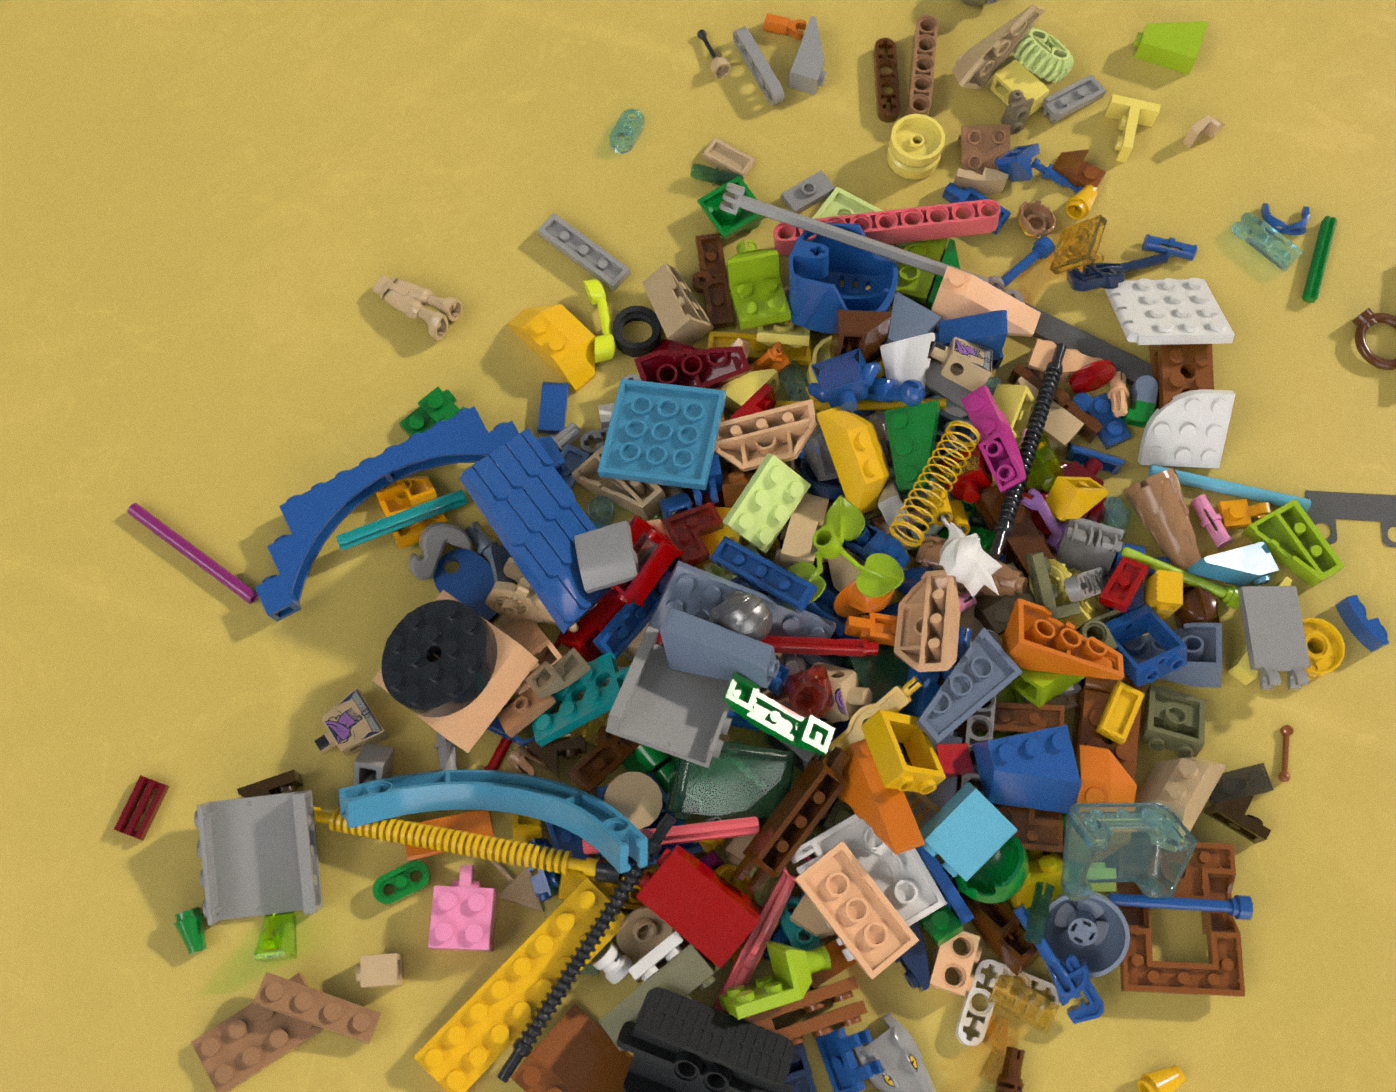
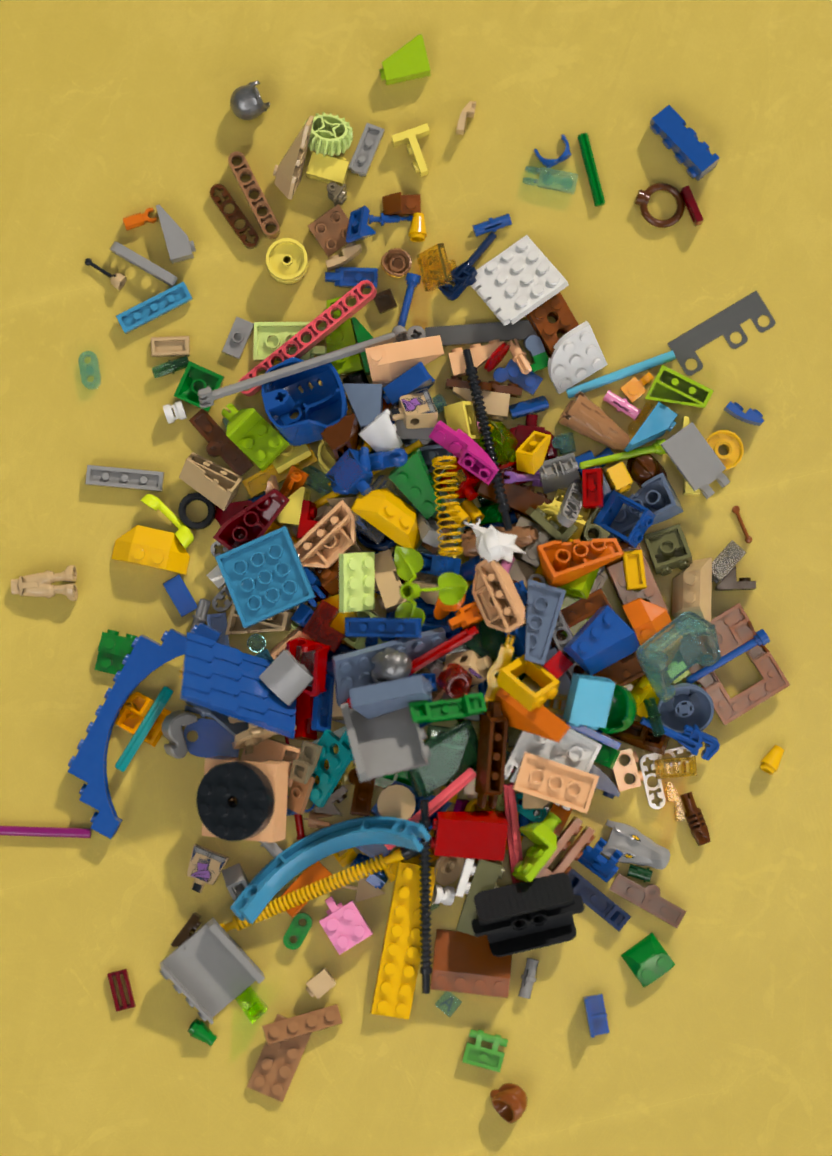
camera: 30 degrees left, 15 degrees up
(686, 219) = (178, 410): none -> white wheel
(739, 111) = (154, 307): none -> dark azure plate
(996, 250) = (385, 301): none -> dark brown plate

